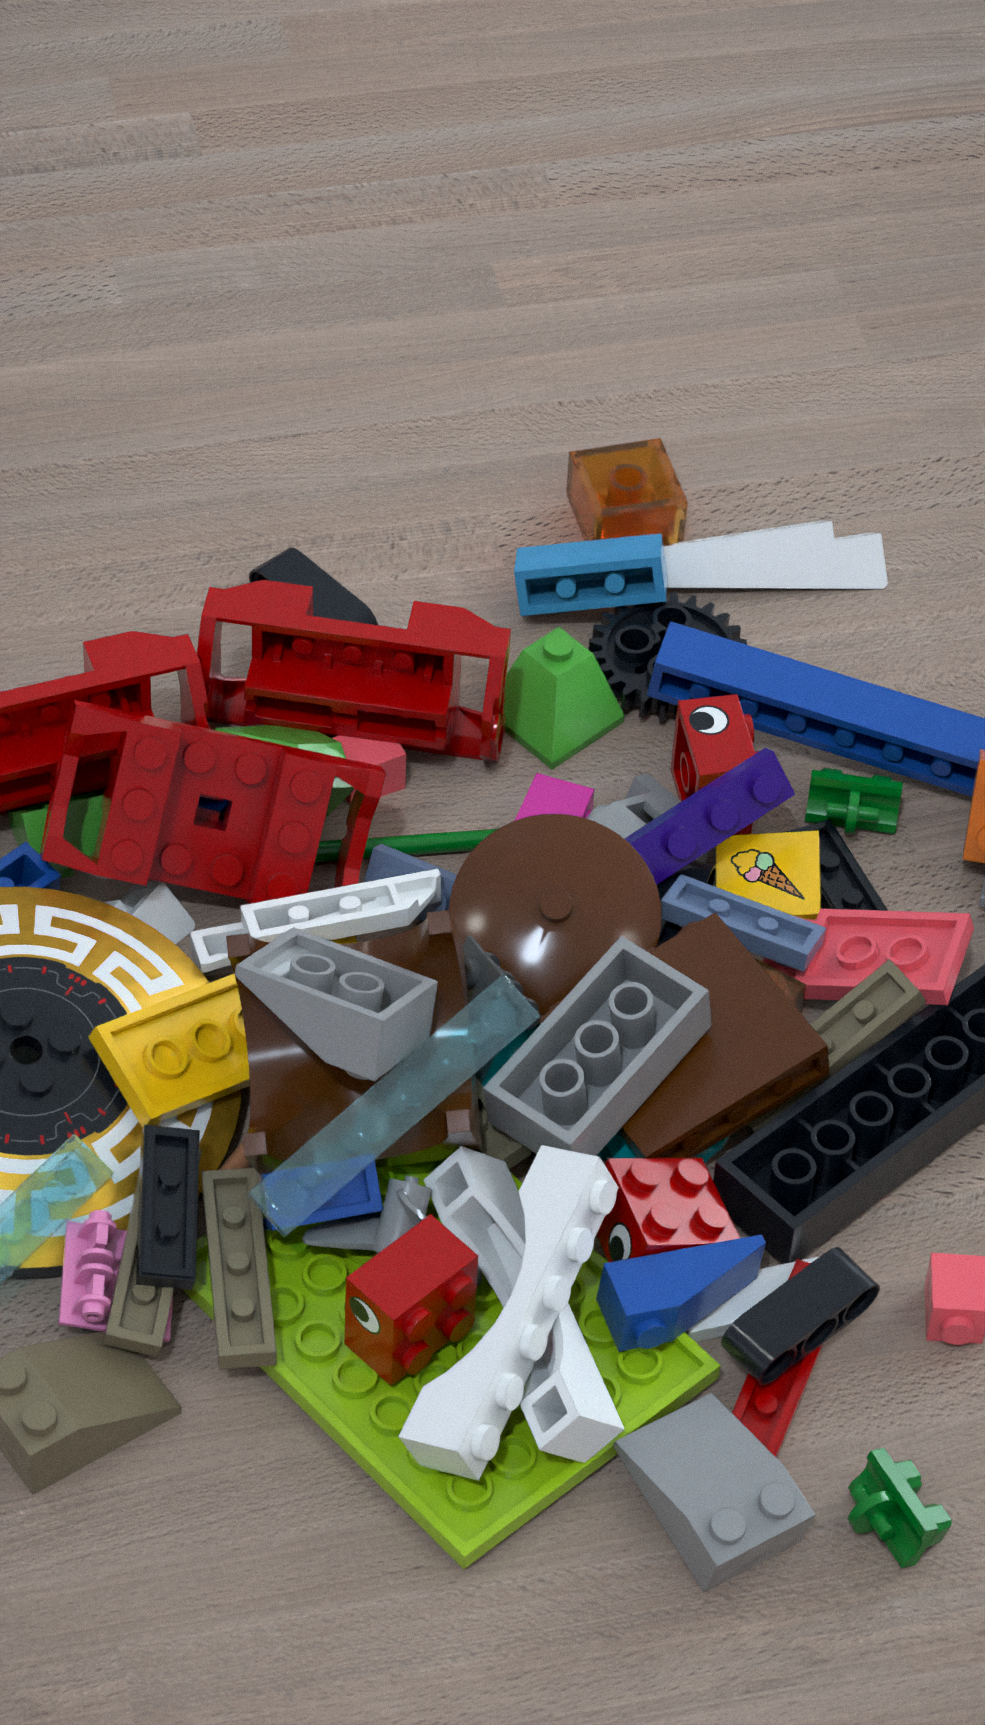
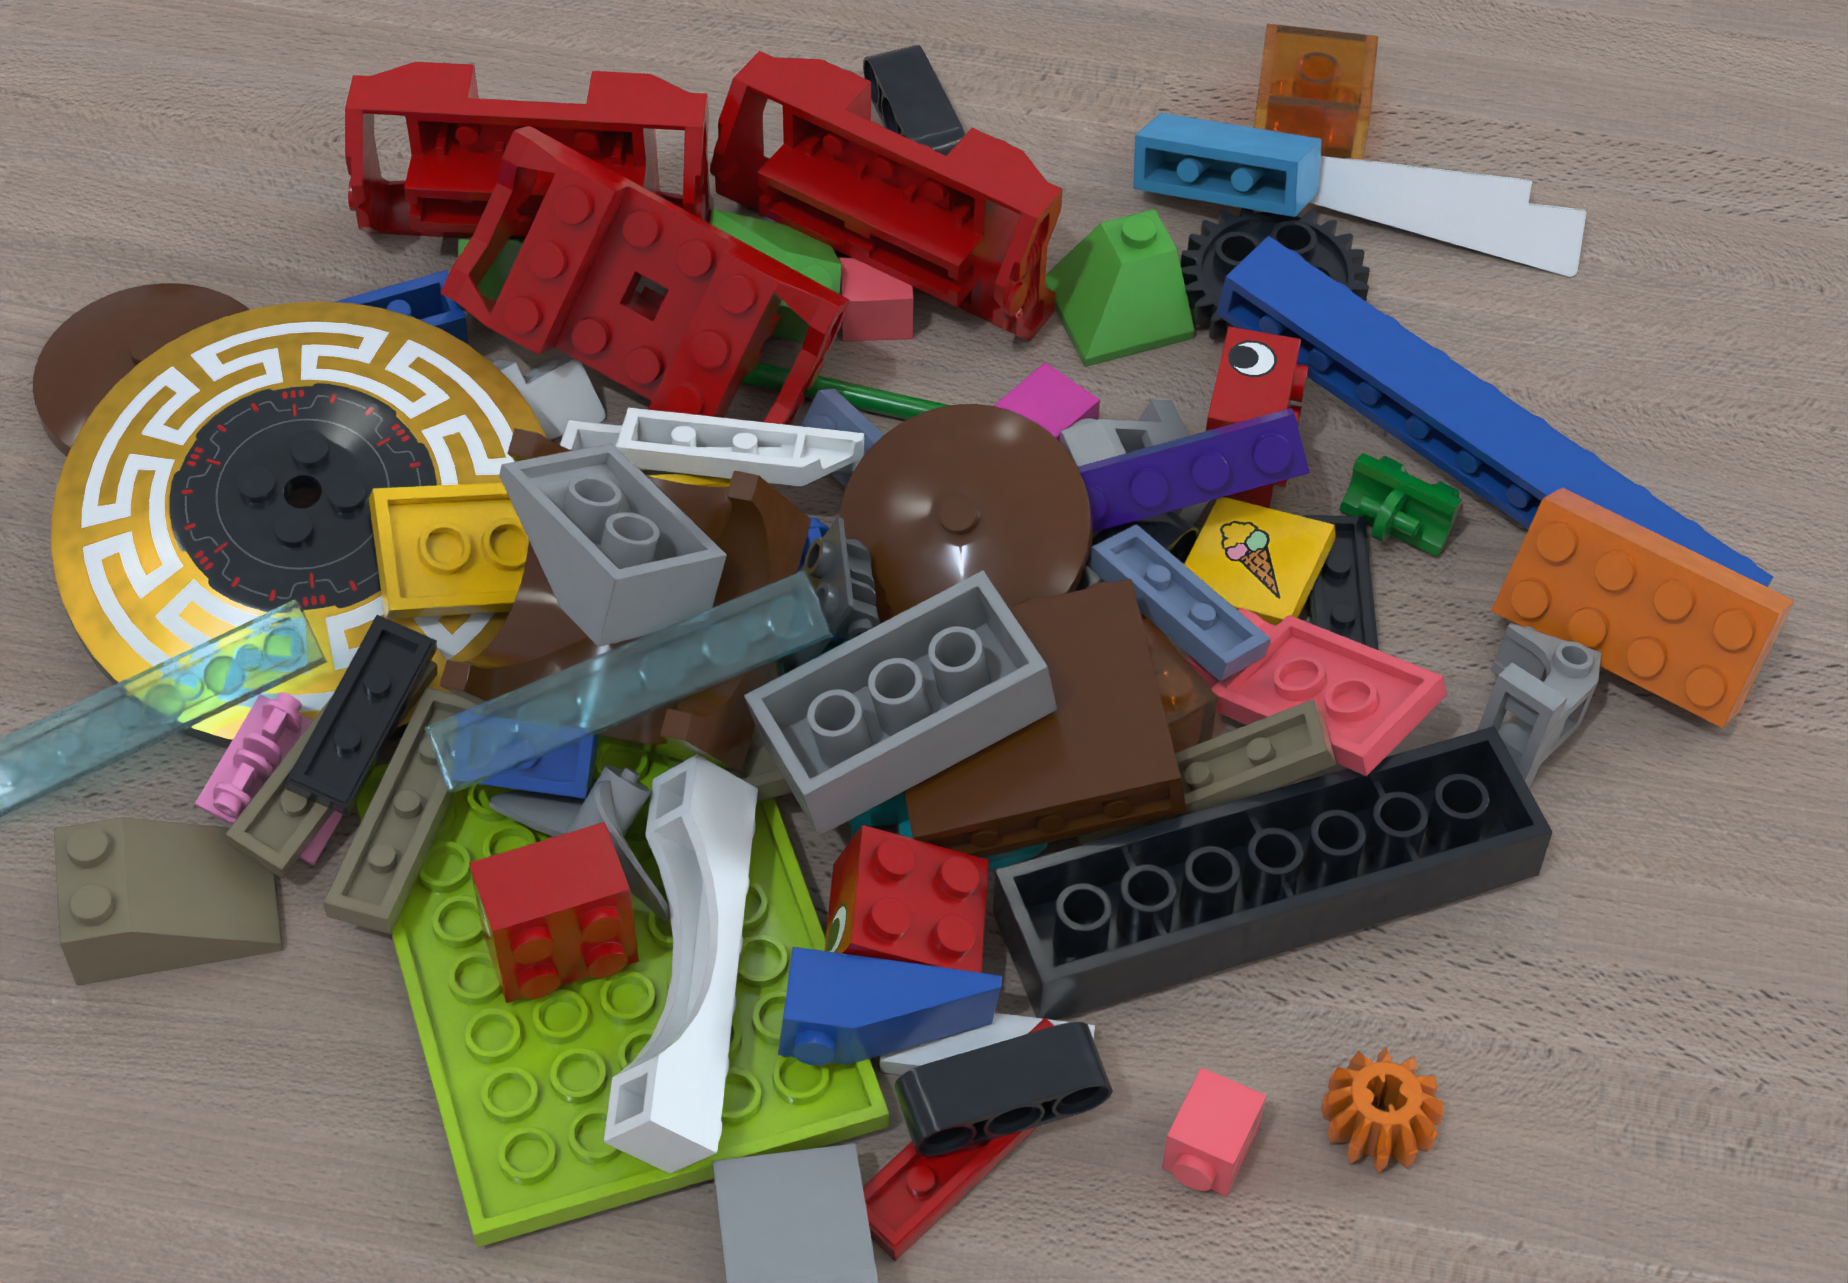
camera: 25 degrees right, 5 degrees up
(466, 1408) = (555, 1058): white arch -> none

